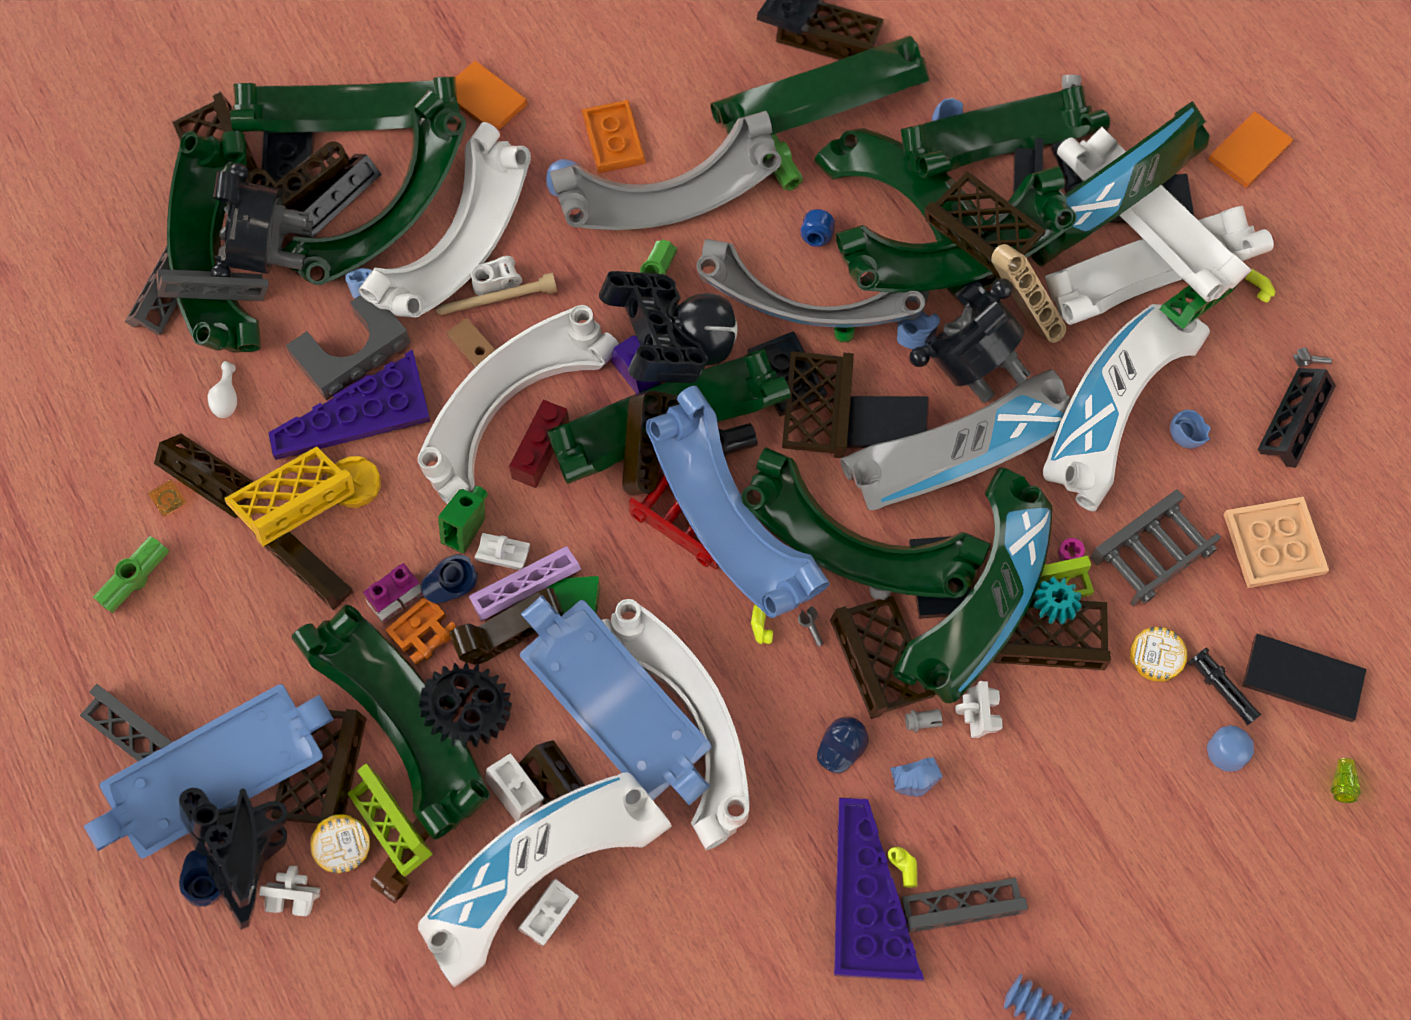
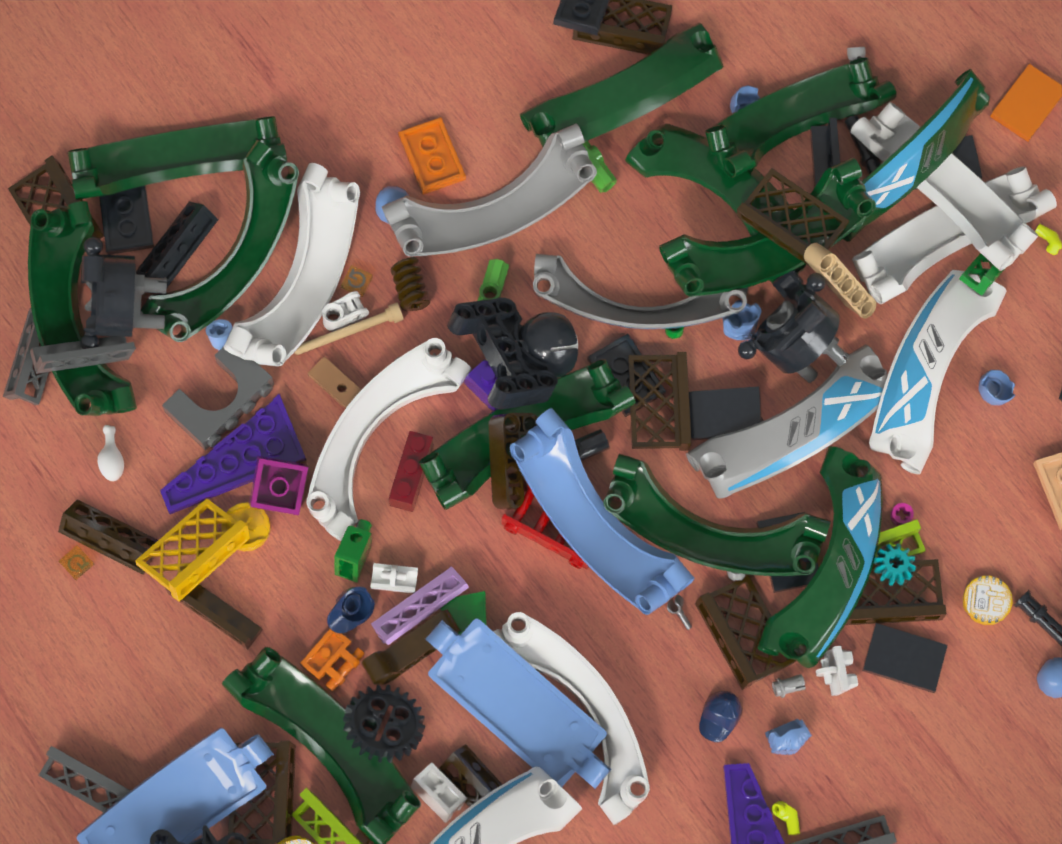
camera: 10 degrees left, 5 degrees up
(119, 586) = (51, 654): bright green piece -> none
(302, 174) = (146, 232): dark brown beam -> none
(393, 439) = (278, 485): none -> magenta brick
(396, 585) = (296, 630): magenta hips -> none
(487, 96) = (305, 129): orange tile -> none
(515, 247) = (356, 280): none -> clear yellow tile
(569, 256) = (407, 284): none -> dark brown piece
(757, 623) = (632, 618): neon yellow arm -> none
(817, 227) = (637, 229): blue head -> none
(1058, 706) = (905, 658): none -> black tile
(1149, 522) = (953, 497): dark grey fence -> none

